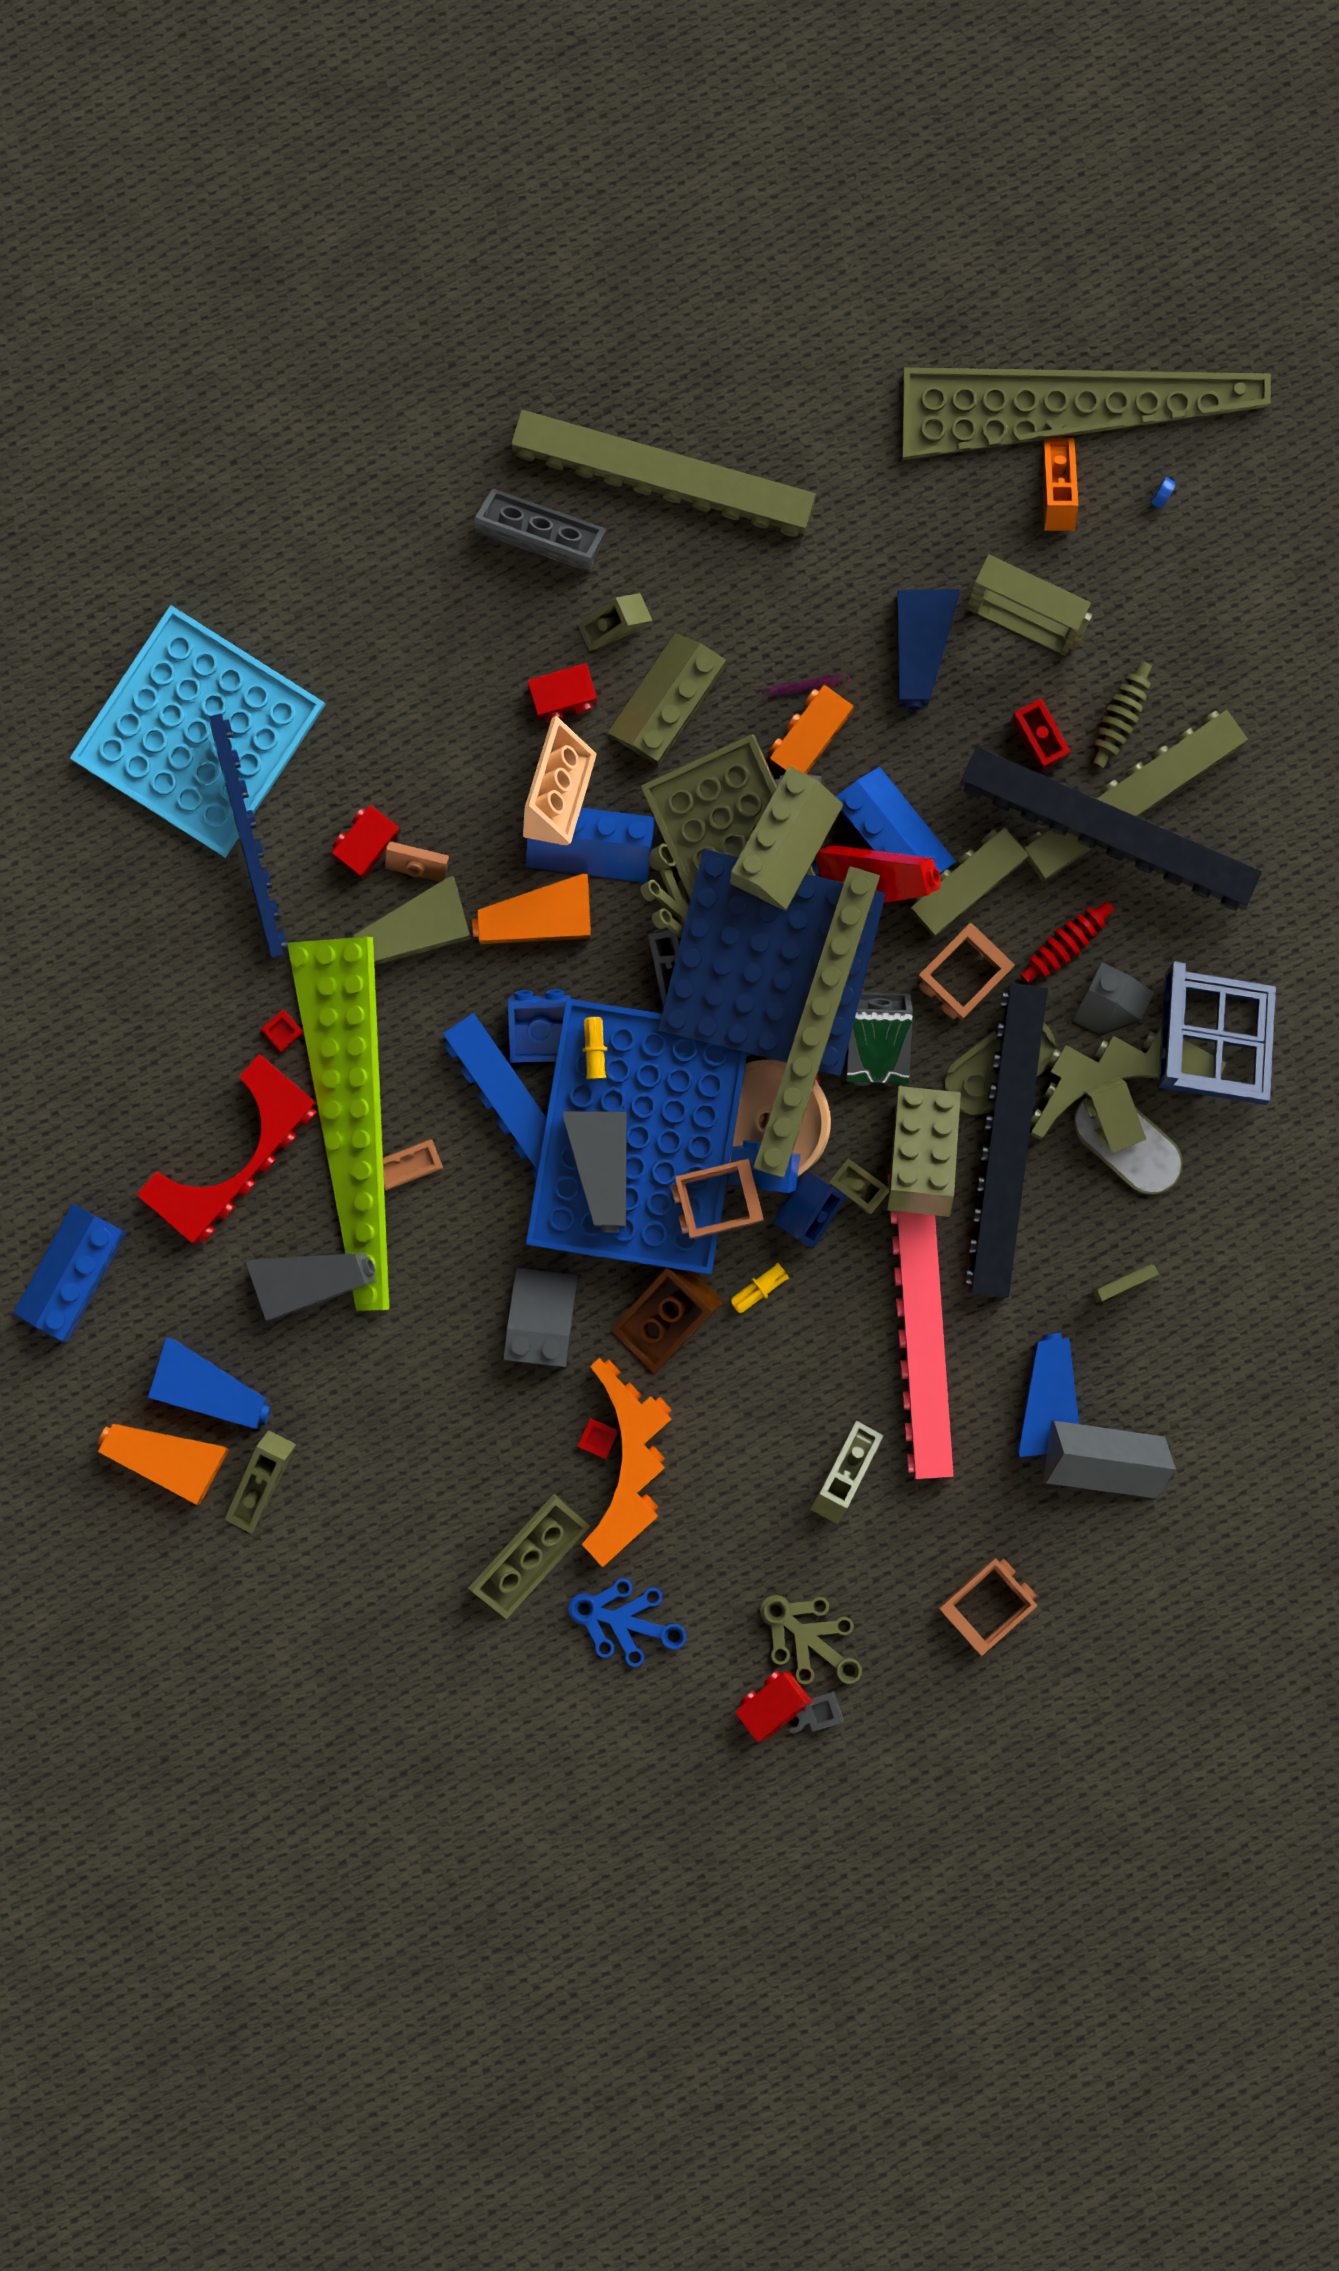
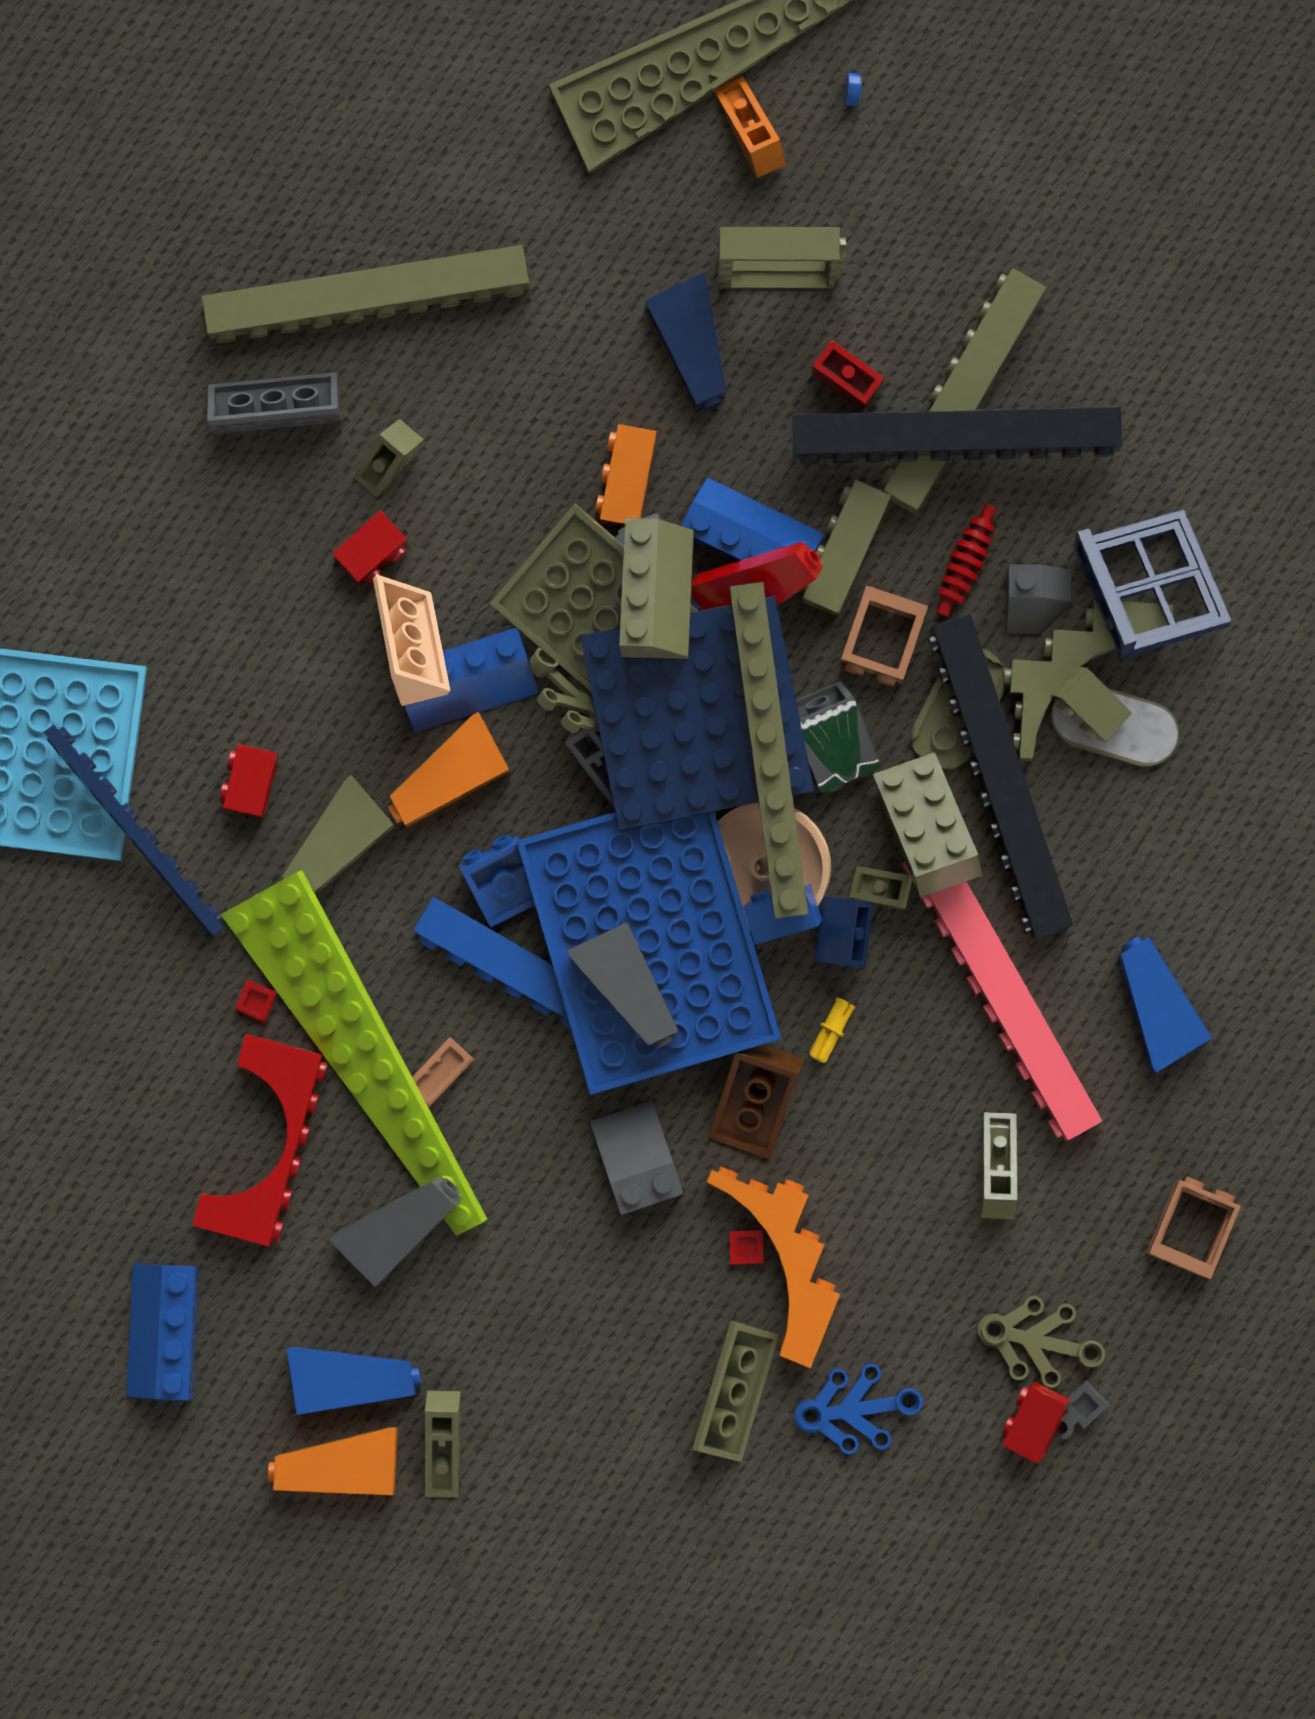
camera: 30 degrees left, 0 degrees up
(416, 862) = (308, 777): nougat plate -> none
(594, 1048) = (567, 876): yellow axle -> none
(667, 698) = (473, 507): olive slope -> none
(681, 1195) = (783, 944): nougat window -> none
(804, 686) = (594, 431): magenta piece -> none
(1107, 1460) = (1240, 1035): dark grey slope -> none
(1122, 714) = (915, 319): olive piece -> none
(1124, 1283) = (1176, 860): olive tile -> none

